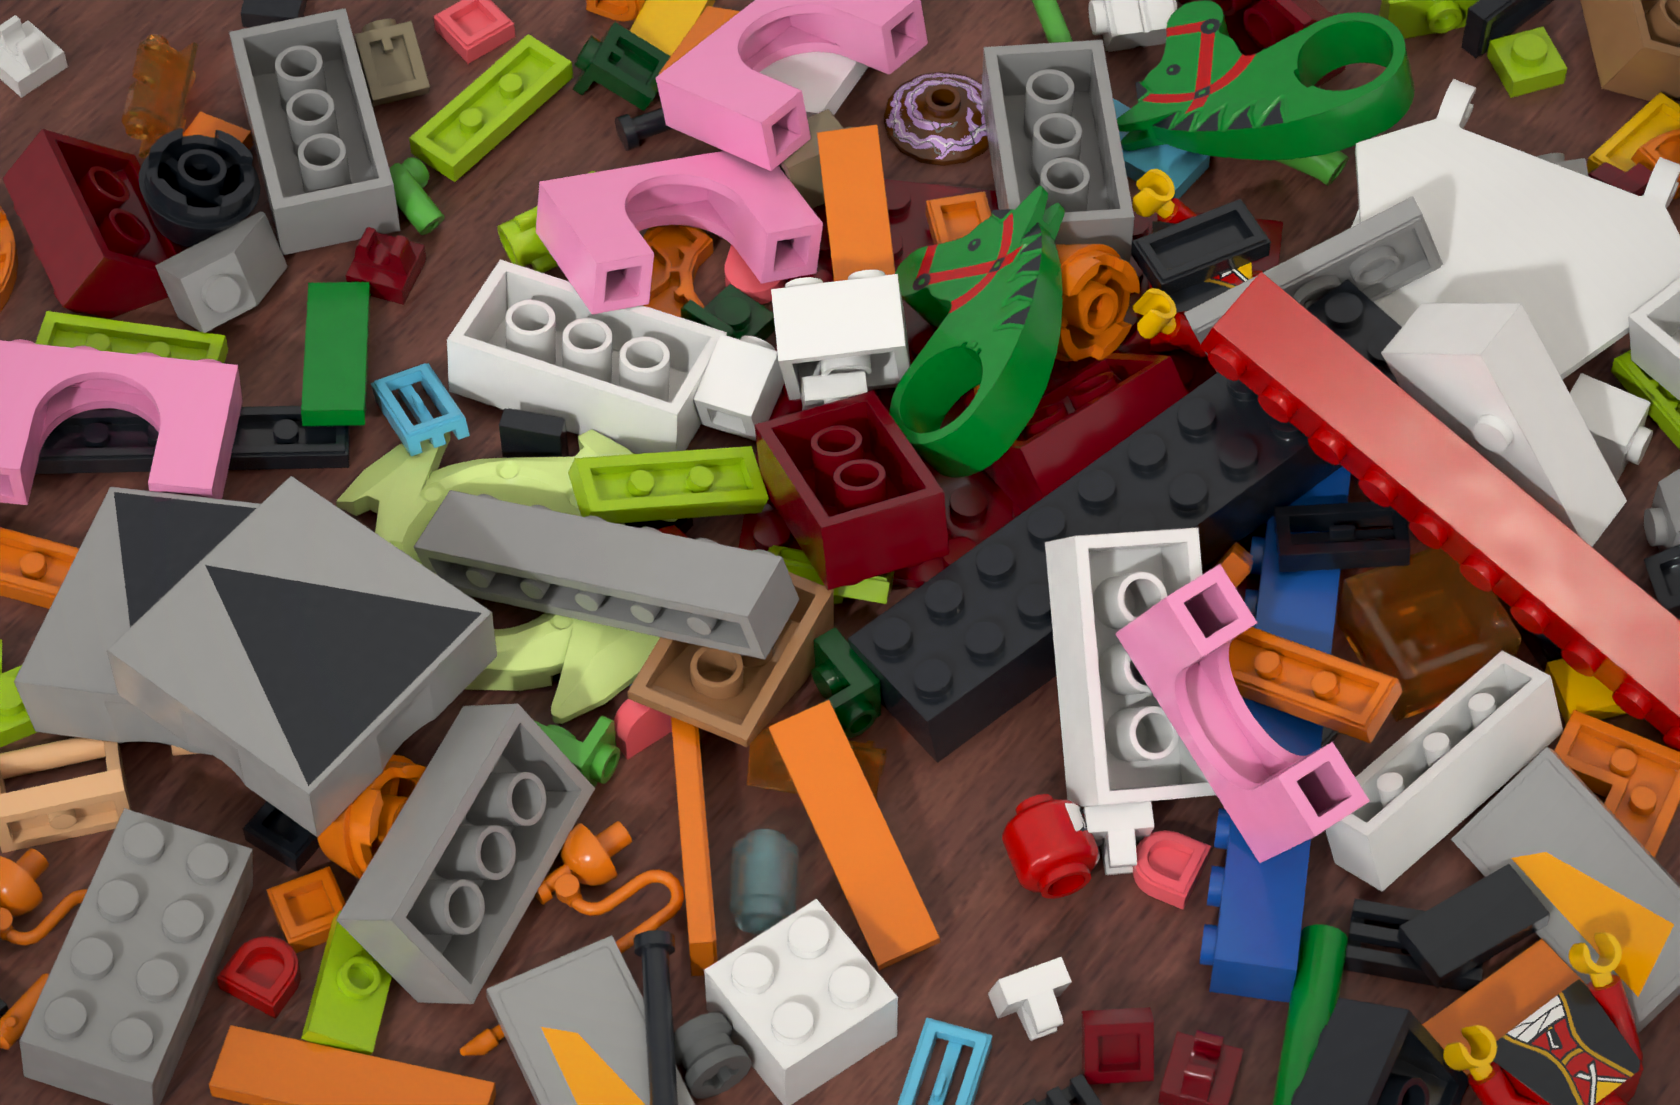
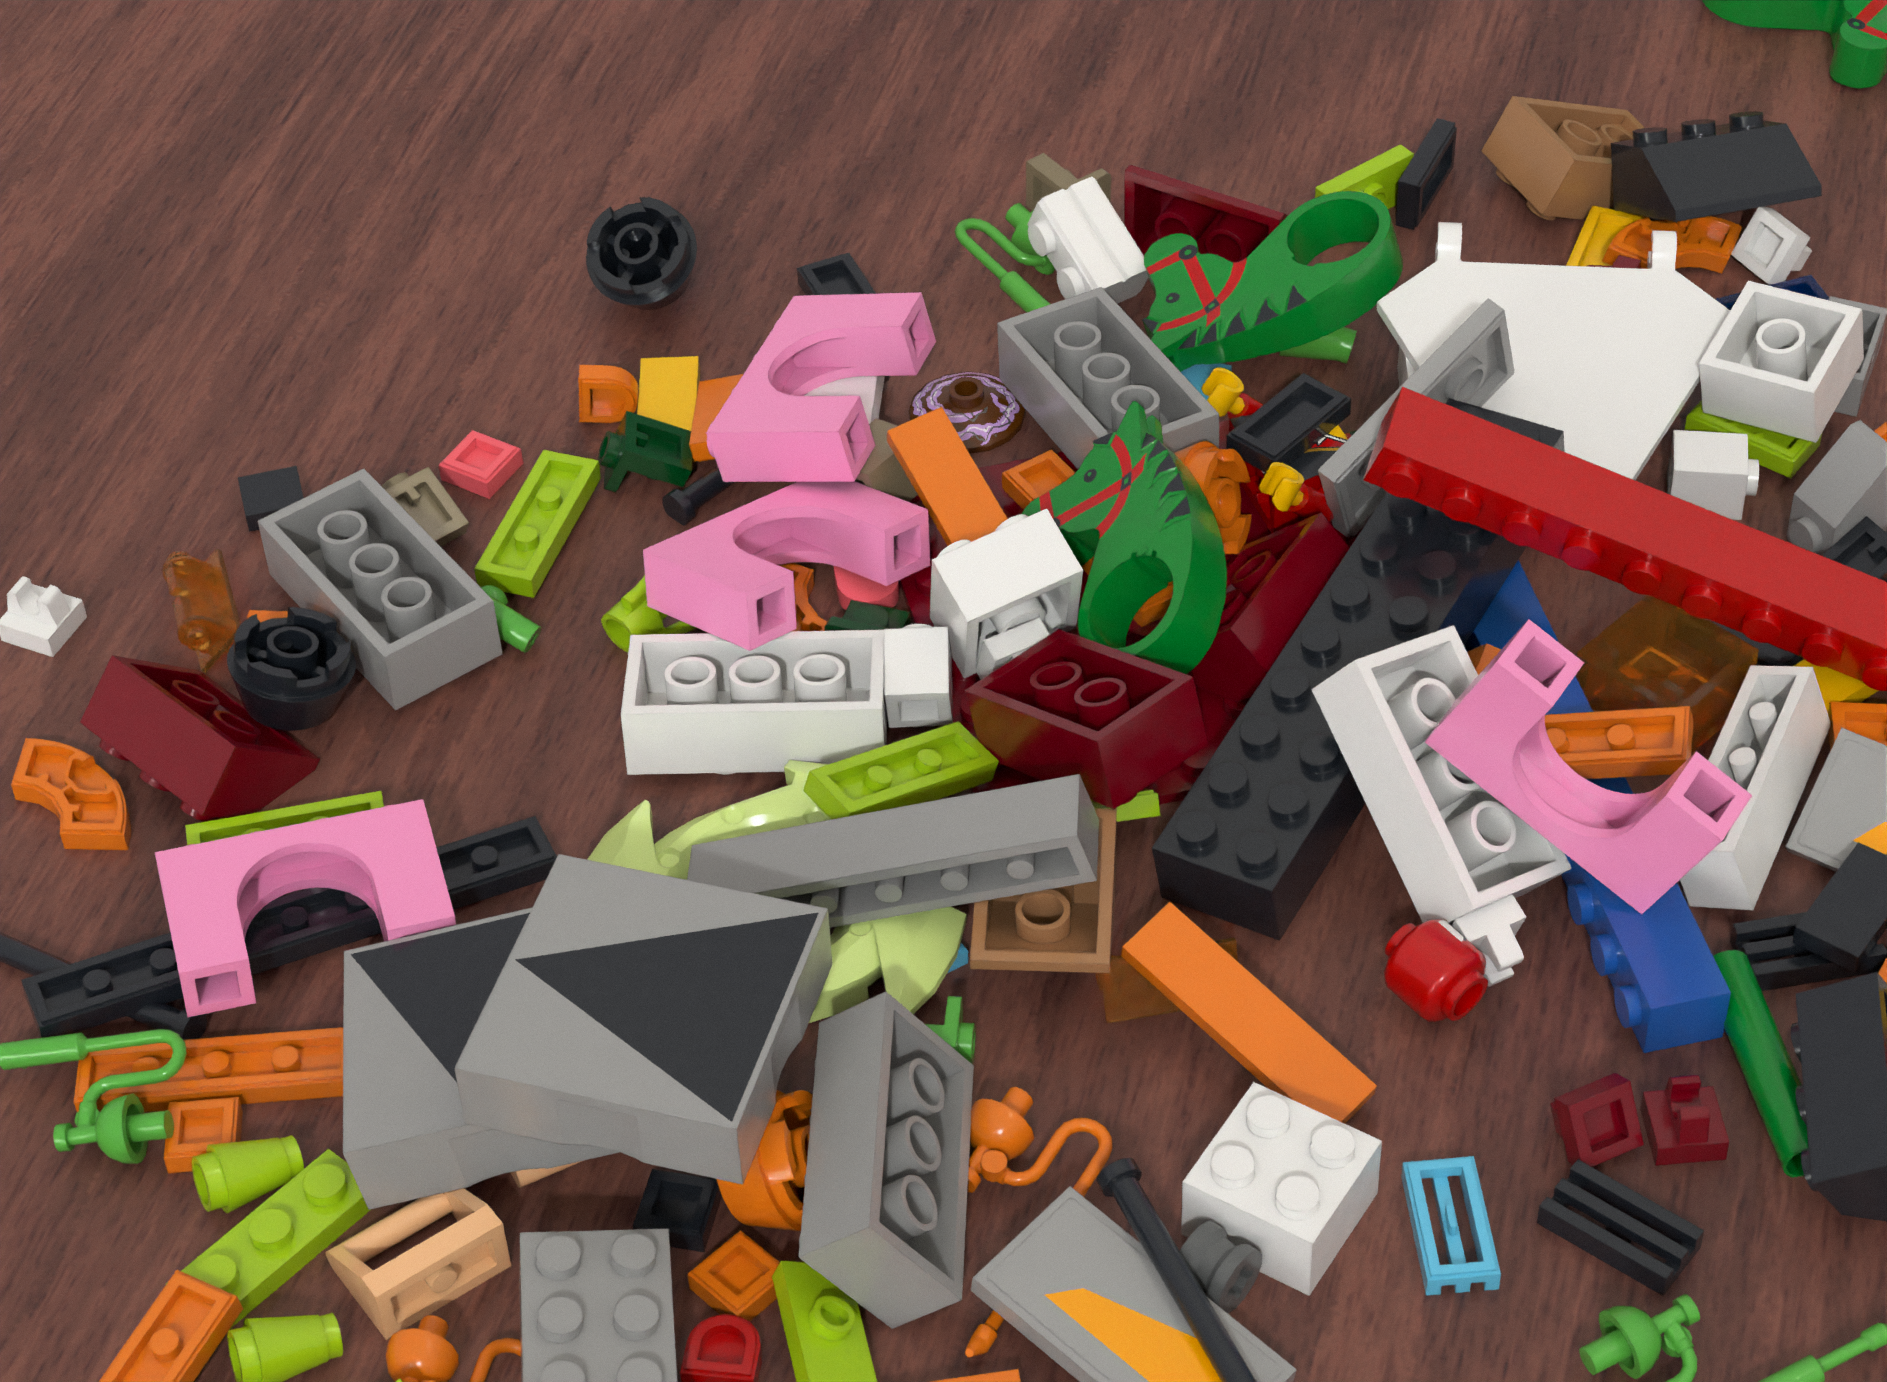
camera: 20 degrees left, 10 degrees down
(223, 273) = (348, 740): light grey slope -> none
(336, 354) = (501, 775): green tile -> none
(387, 264) = (505, 687): dark red tile -> none
(427, 427) = (603, 801): medium azure tile -> none
(532, 434) = (736, 779): black tile -> none
(639, 727) = (984, 995): coral tile -> none
(694, 846) = (1093, 1081): orange tile -> none
(763, 880) = (1179, 1096): clear light blue brick -> none
(846, 683) = (1149, 885): dark green bracket -> none
(1033, 997) = (1495, 1108): white tile -> none
(1170, 866) = (1549, 957): coral tile -> none
(1342, 545) = (1565, 611): black tile -> none
(1501, 393) = (1647, 426): white brick -> none
(1527, 62) = (1463, 206): lime plate -> none

